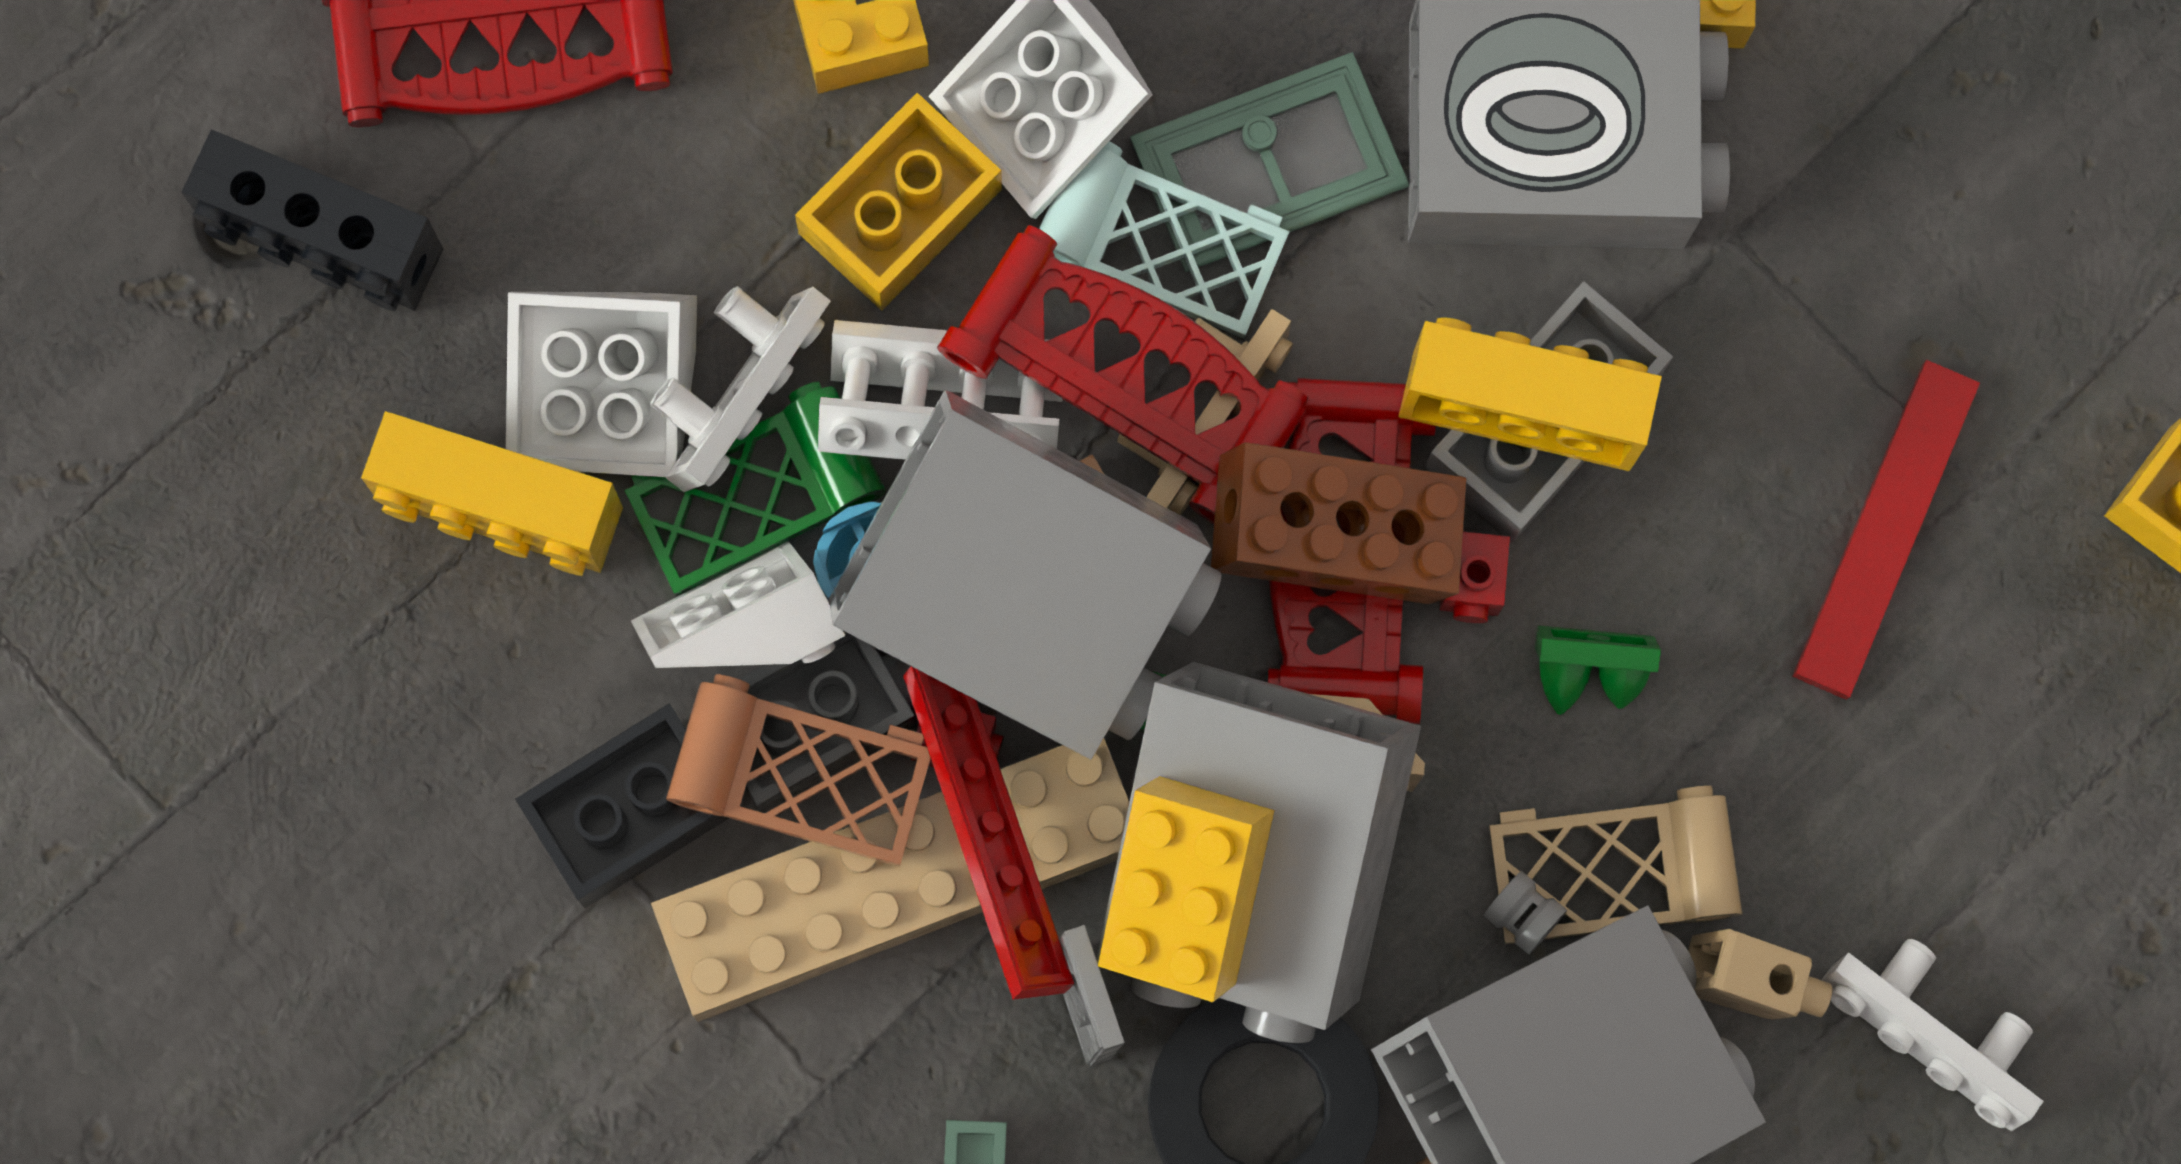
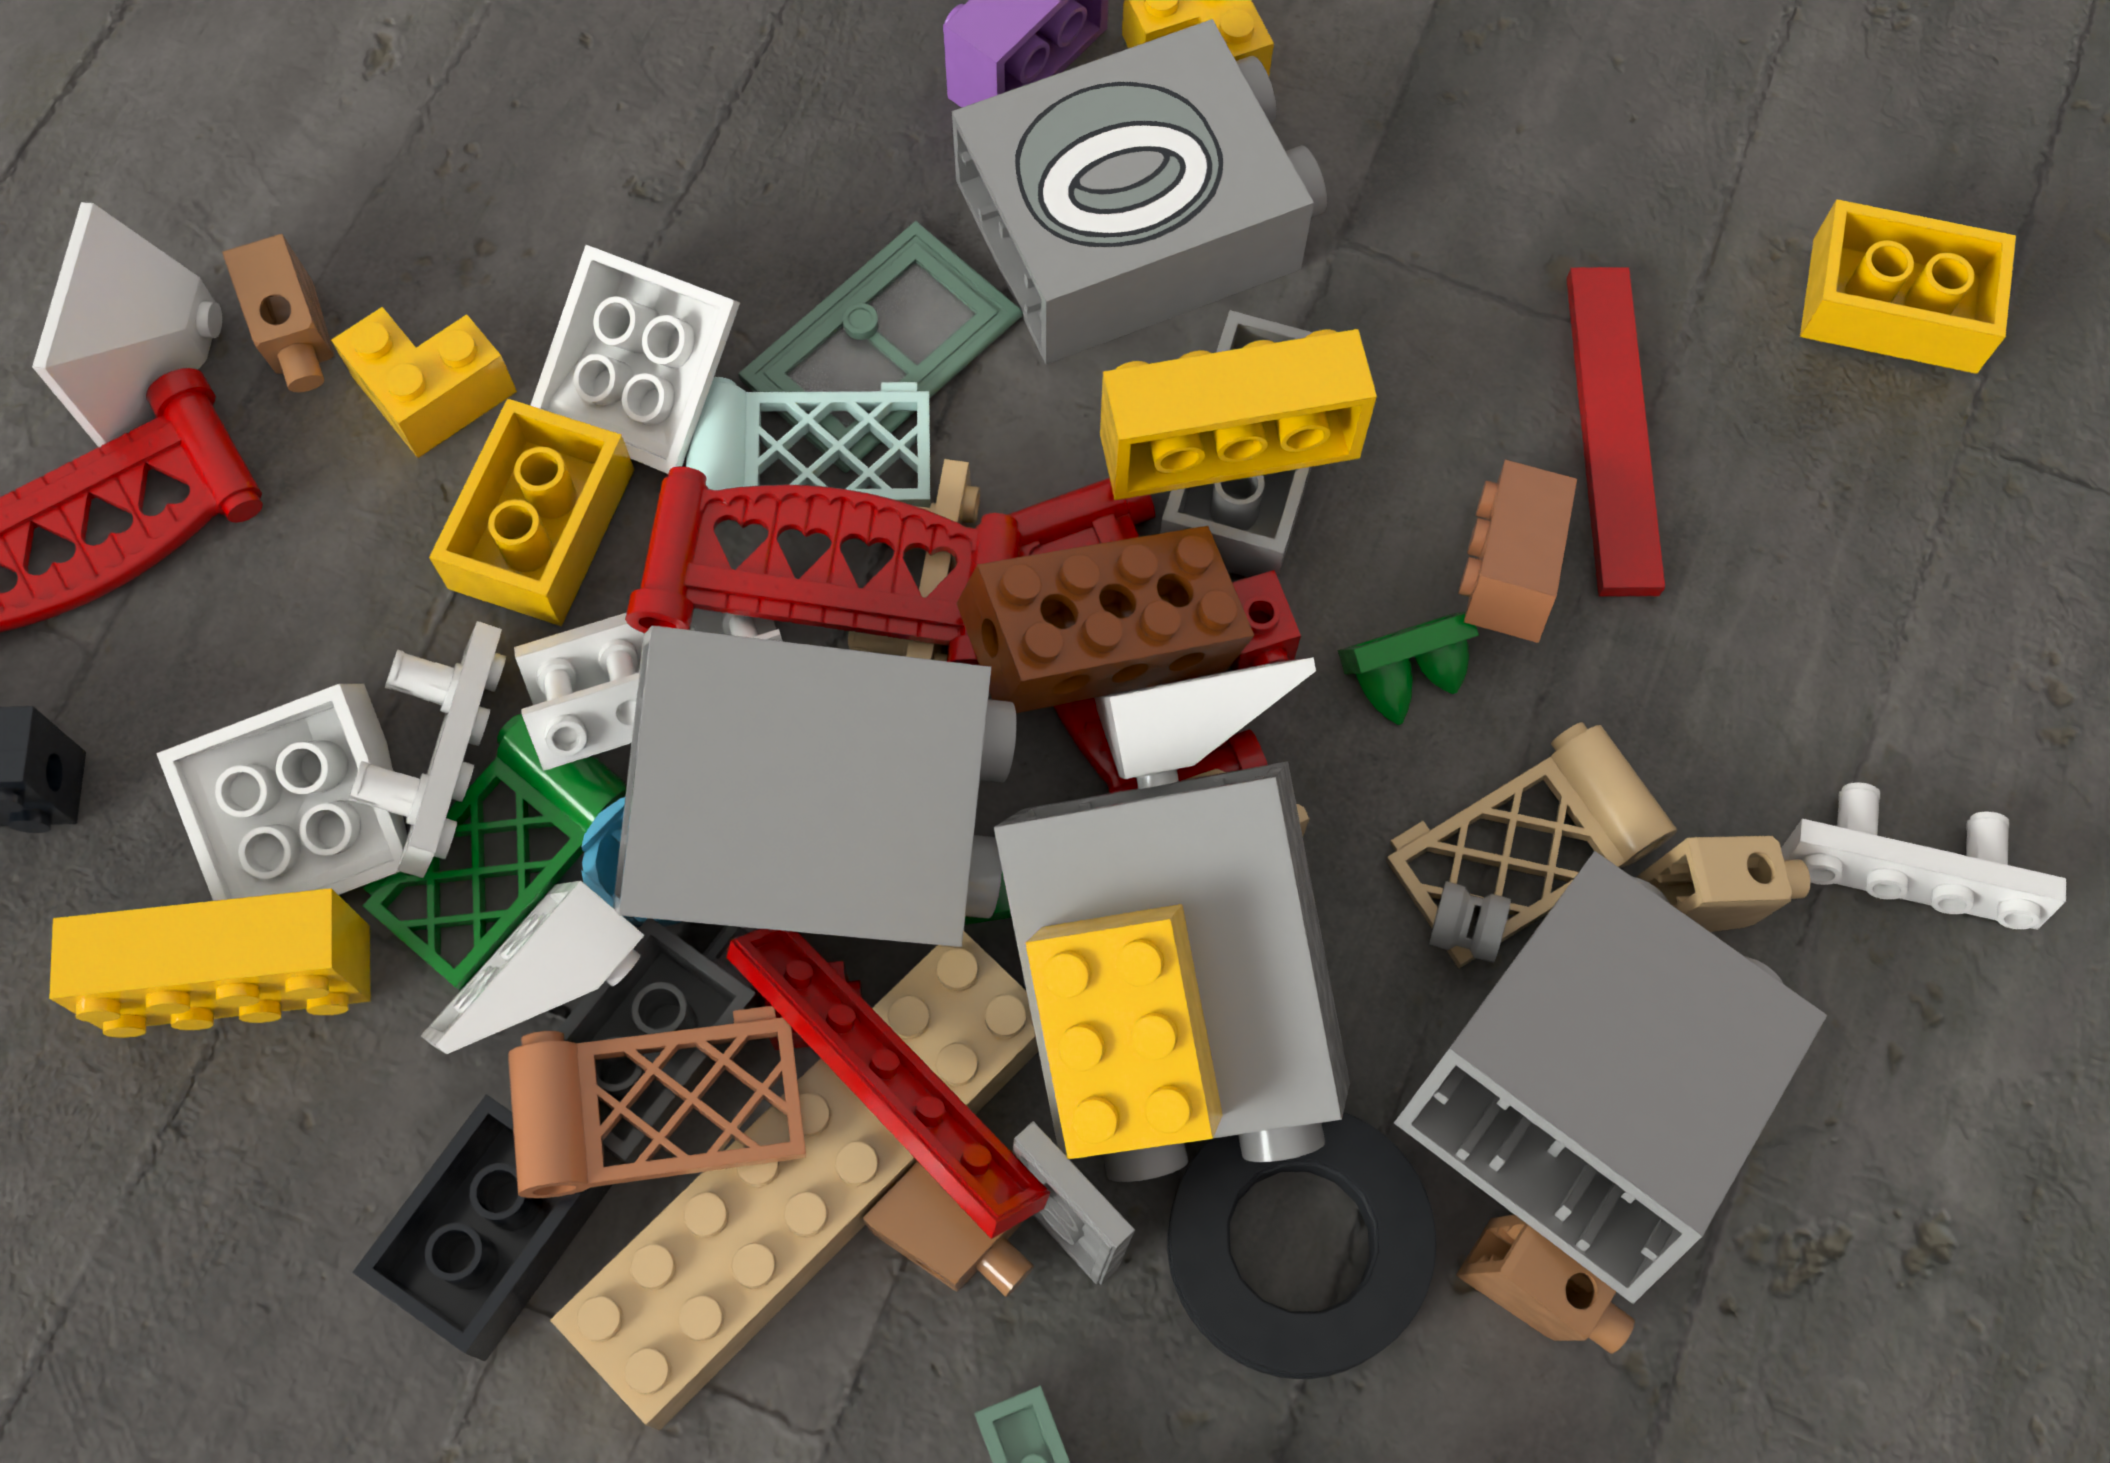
camera: 20 degrees left, 10 degrees down
(974, 970) = (941, 1237): none -> medium nougat torso
(1369, 642) = (1183, 721): none -> white slope
(1729, 611) = (1517, 550): none -> nougat brick

